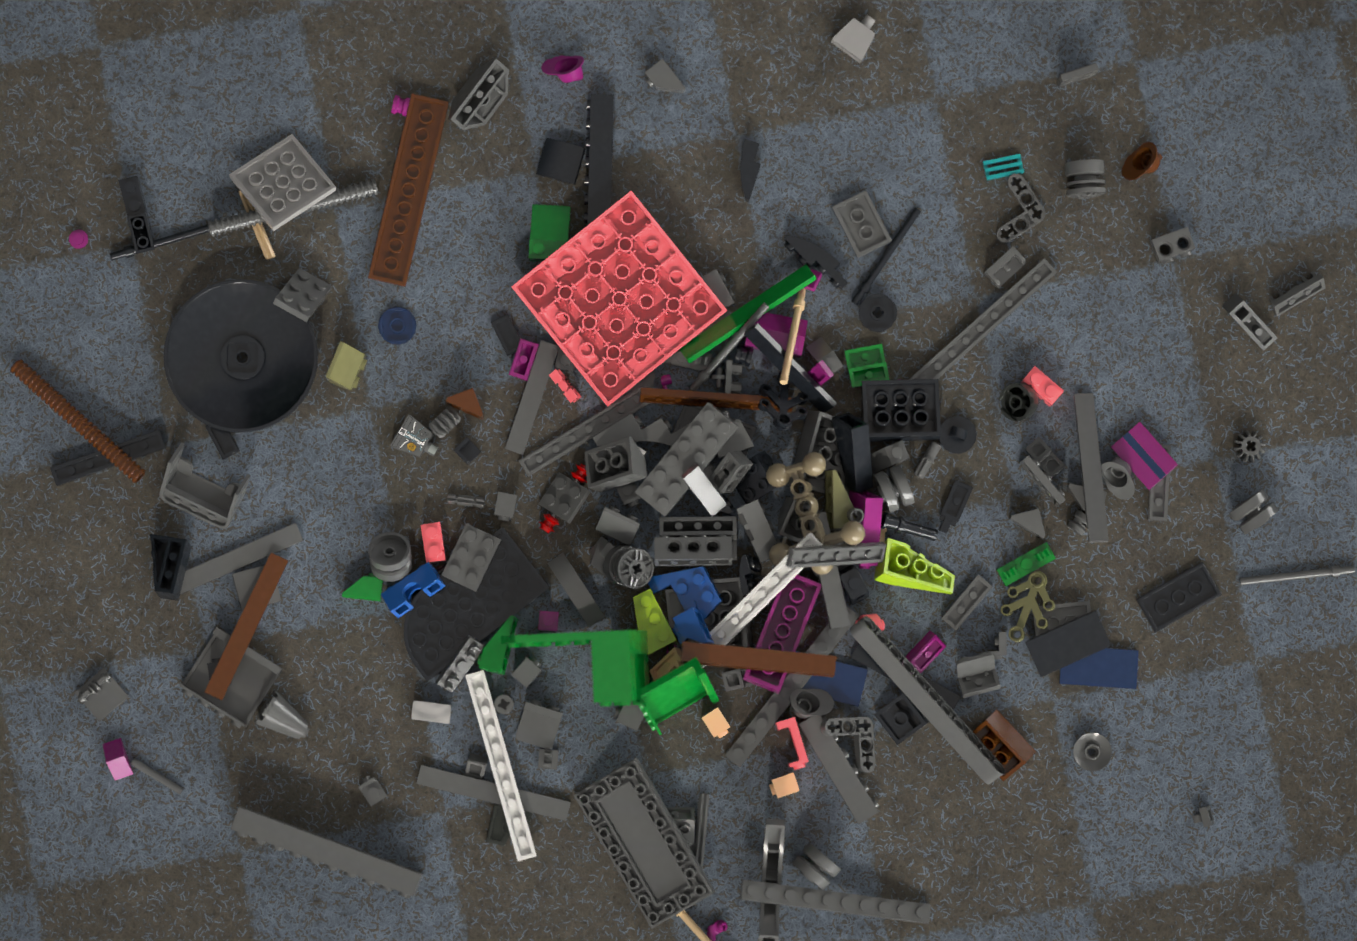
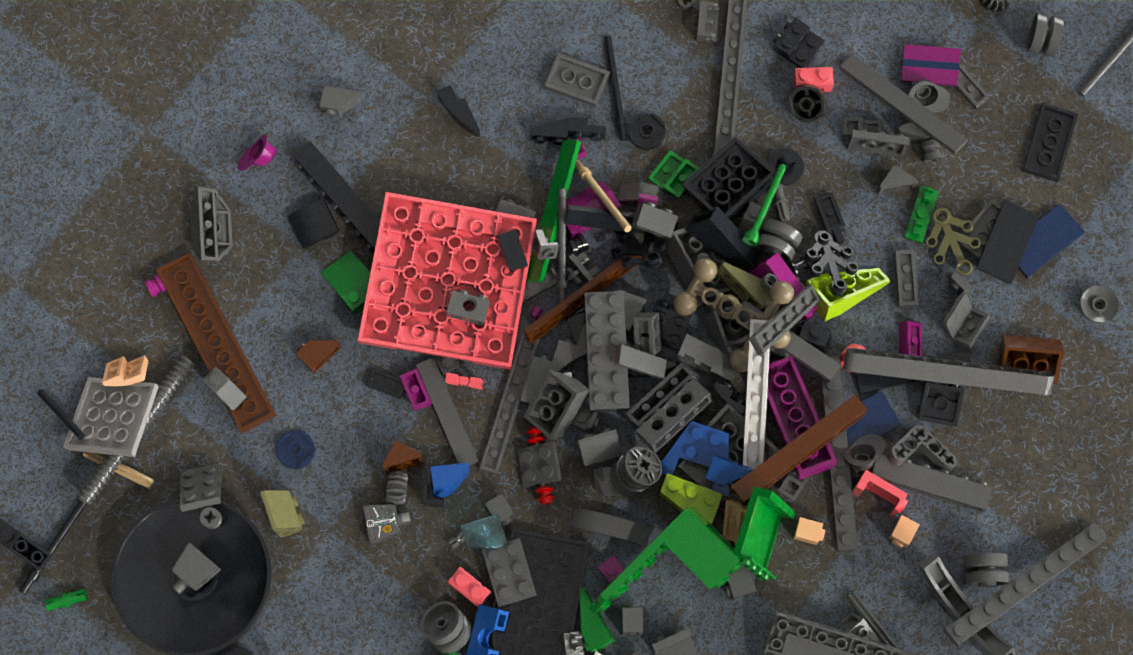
camera: 35 degrees left, 10 degrees down
(138, 290) = (66, 599): none -> green pin
(245, 353) = (193, 569): none -> dark grey torso
(248, 145) = (61, 414): none -> black bar
(290, 329) = (215, 518): none -> dark grey wheel
(321, 155) = (125, 373): none -> light nougat slope
(383, 234) = (224, 388): none -> slope
(475, 266) = (317, 353): none -> reddish brown slope
(478, 514) = (484, 533): none -> clear light blue slope
(488, 448) = (447, 478): none -> blue slope
(615, 346) = (457, 311): none -> dark grey brick
(686, 319) = (512, 251): none -> black tile
(710, 338) = (543, 248): none -> dark grey bracket
(813, 391) = (654, 220): none -> dark grey brick
(876, 468) = (751, 237): none -> green piece
(920, 538) = (824, 241): none -> black plant
(1059, 346) = (797, 43): none -> black plate

